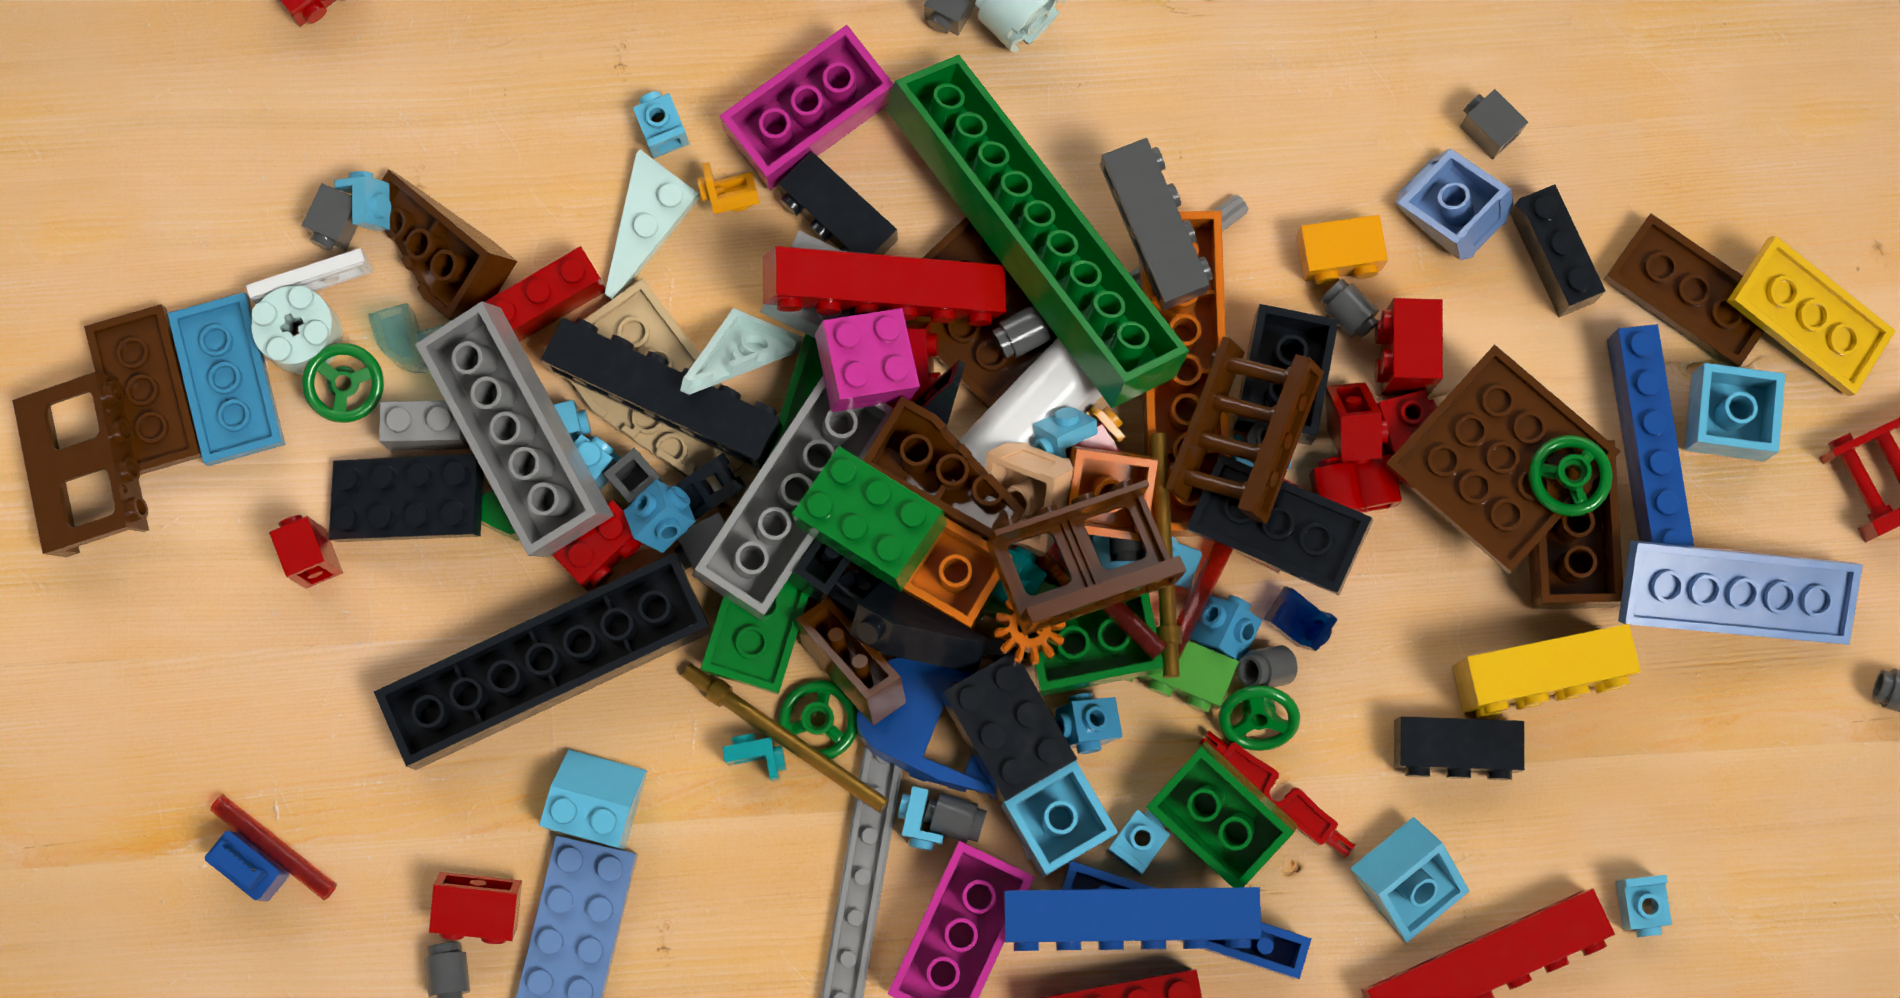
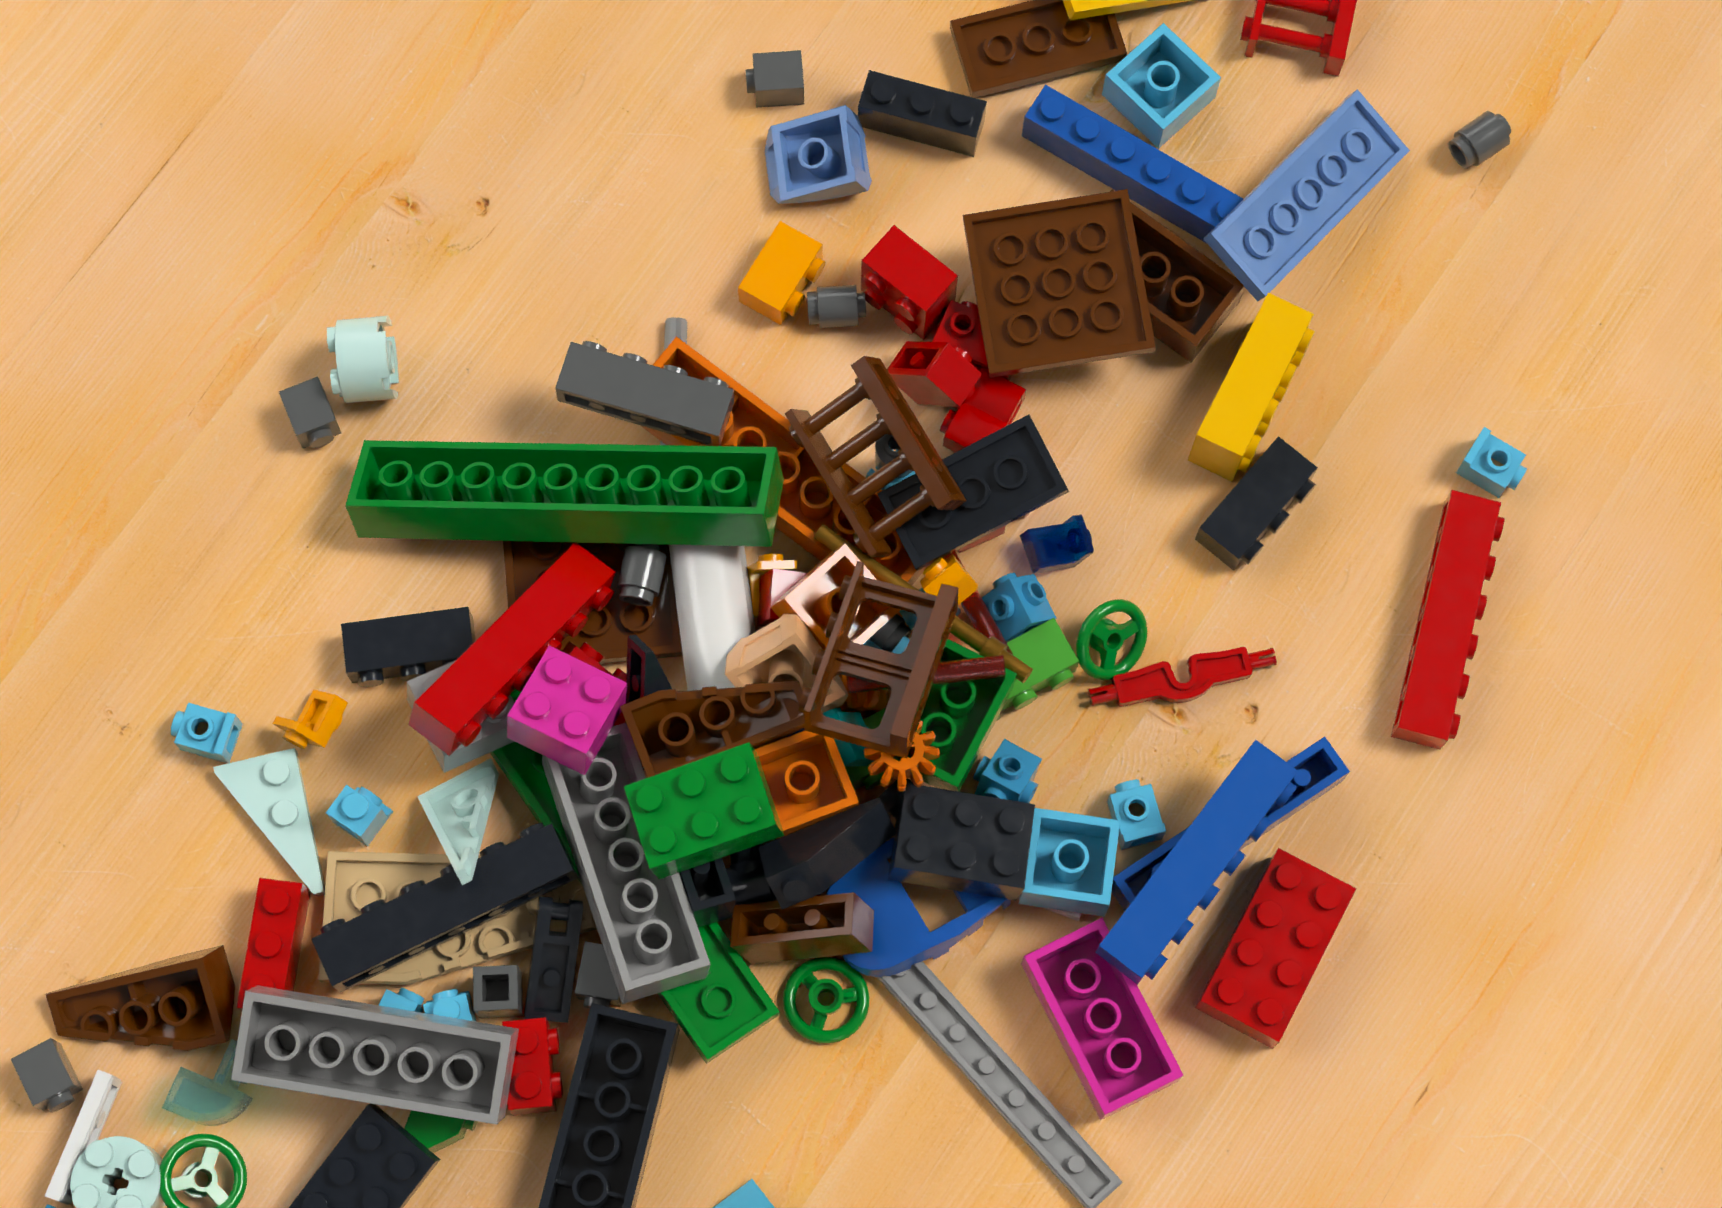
camera: 55 degrees left, 5 degrees down
(369, 200) = (61, 1028): medium azure bracket -> none
(419, 426) = (298, 1137): light grey brick -> none
(659, 515) = (550, 990): dark azure brick -> none
(686, 277) = (359, 813): none -> medium azure brick
(721, 694) = (737, 1063): pearl gold bar -> none
(748, 749) = (804, 1076): teal bracket -> none
(807, 106) = (300, 598): dark pink brick -> none
(912, 810) = (966, 979): medium azure bracket -> none
(955, 818) = (999, 949): dark grey brick -> none
(1063, 430) = (754, 602): medium azure bracket -> none
(1200, 560) = (950, 573): none -> light orange bracket
(1222, 816) = (1169, 730): green brick -> none
(1268, 667) = (1076, 599): dark grey brick -> none
(1275, 341) = (825, 372): black brick -> none
(1410, 878) = (1333, 625): medium azure slope -> none
(1581, 464) = (1116, 225): green piece -> none

